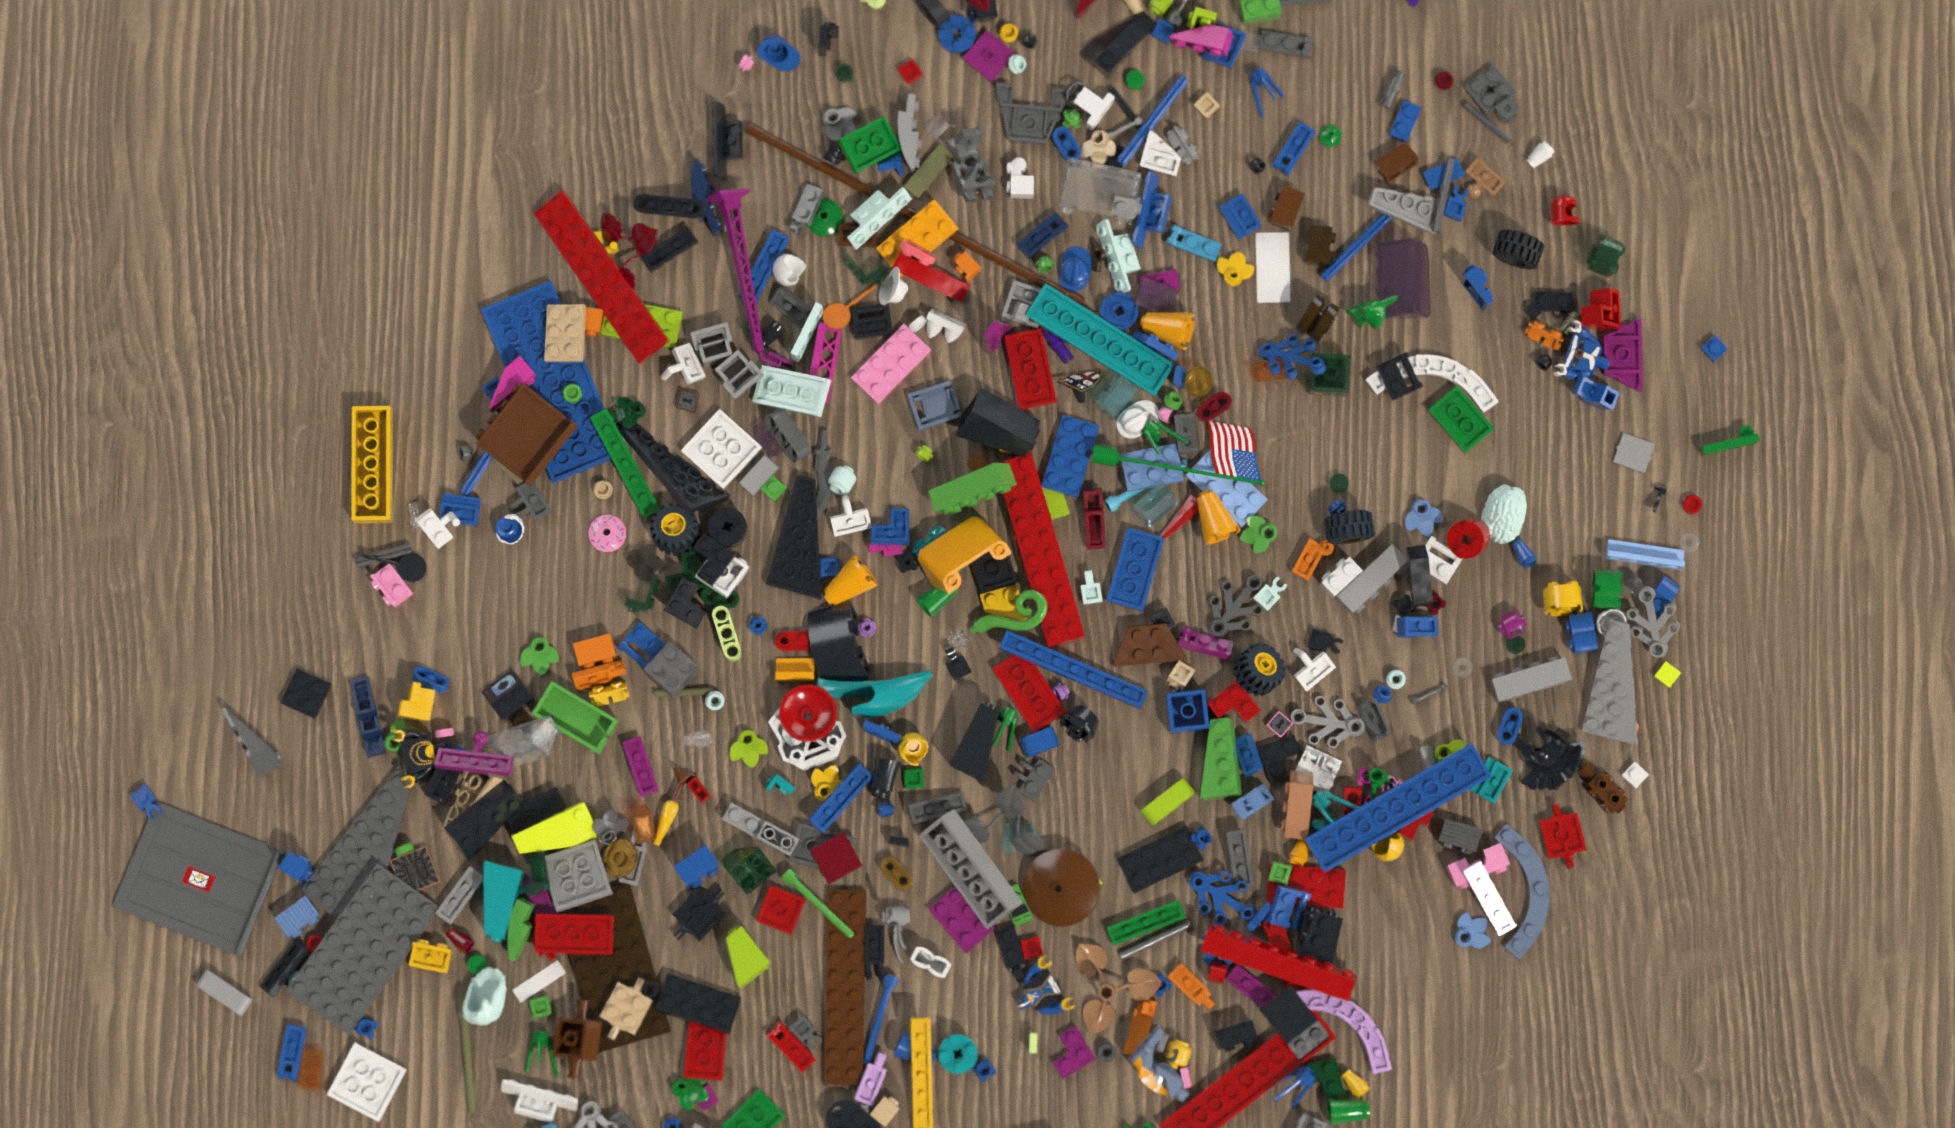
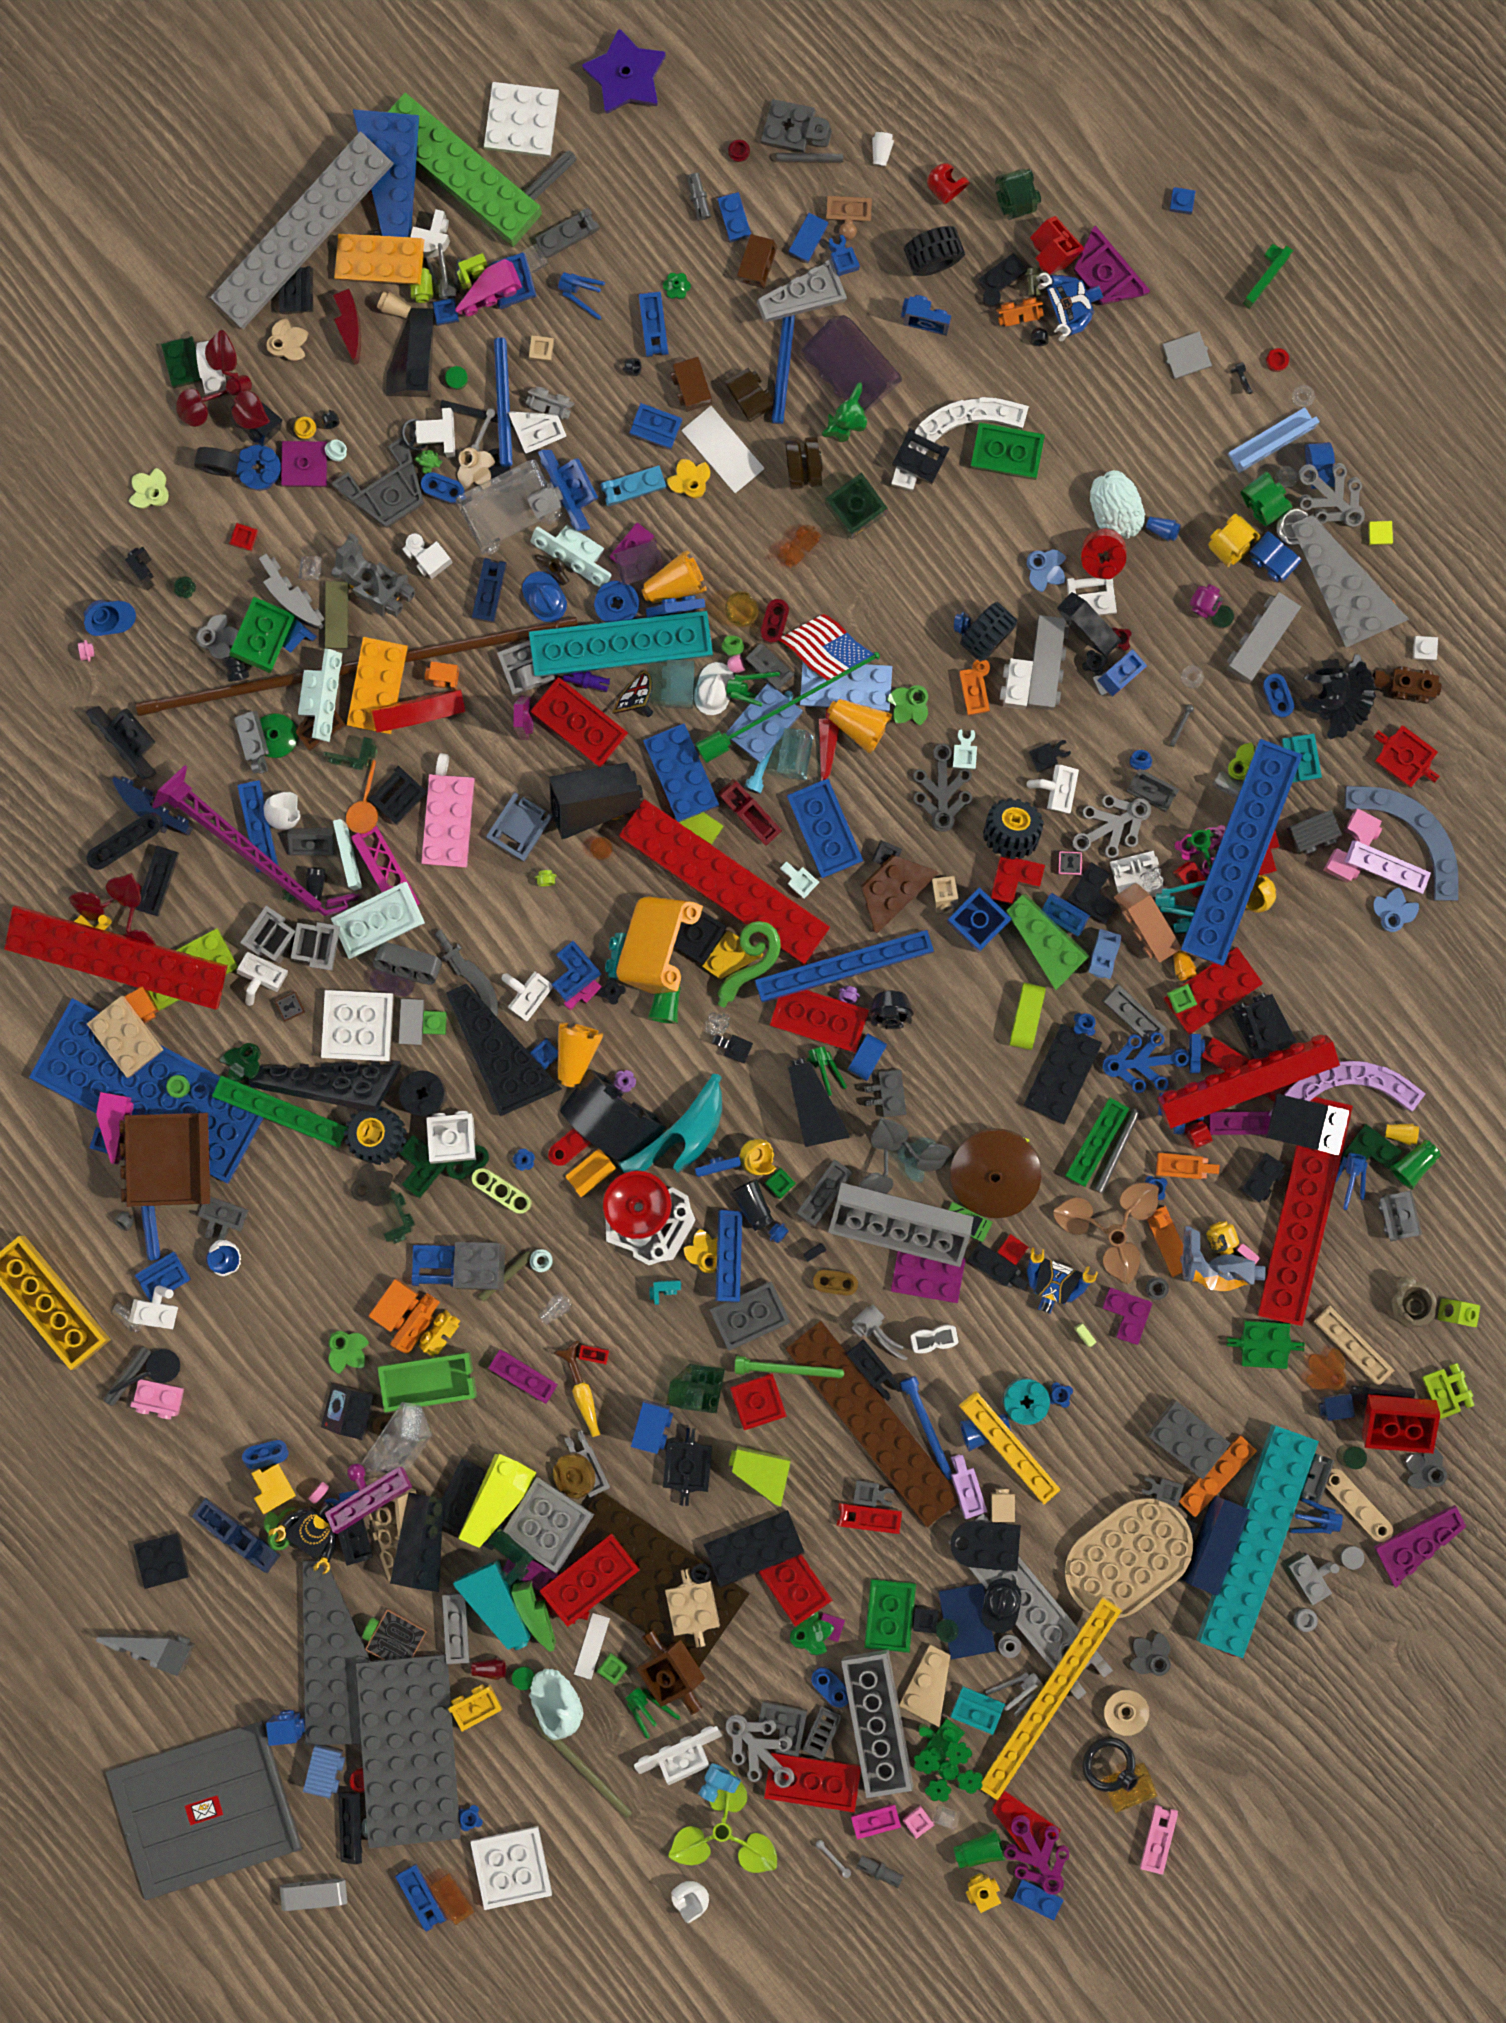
camera: 35 degrees left, 5 degrees up
(144, 800) = (94, 1779): blue plate -> none
(603, 489) = (279, 1151): tan plate -> none
(609, 824) = (539, 1453): dark grey plate -> none
(613, 540) = (327, 1190): bright pink dish -> none
(642, 823) = (567, 1427): clear orange slope -> none
(681, 605) = (438, 1199): black brick -> none
(717, 559) = (436, 1129): black plate -> none
(748, 751) = (610, 1281): lime plate -> none
(760, 829) = (680, 1344): light grey slope -> none
(836, 858) = (770, 1314): dark red tile -> none
(842, 480) = (491, 964): light aqua head -> none
(892, 288) = (392, 750): white piece -> none
(924, 256) = (397, 697): coral plate -> none
(952, 326) = (458, 746): white tile -> none
(972, 488) = (618, 875): bright green piece -> none
(1045, 264) = (513, 615): bright green plate -> none
(1162, 1044) = (1203, 1241): light grey tile -> none
(1179, 376) = (720, 618): blue tile -> none
(1205, 644) = (944, 844): magenta plate -> none
(1269, 351) = (783, 528): blue plant -> none
(1283, 906) = (1210, 1026): blue plate -> none
(1339, 483) = (944, 599): clear green tile -> none
(1400, 675) = (1141, 729): light aqua plate -> none
(1443, 195) = (821, 249): dark grey bar -> none
(1595, 394) = (1112, 328): blue brick -> none

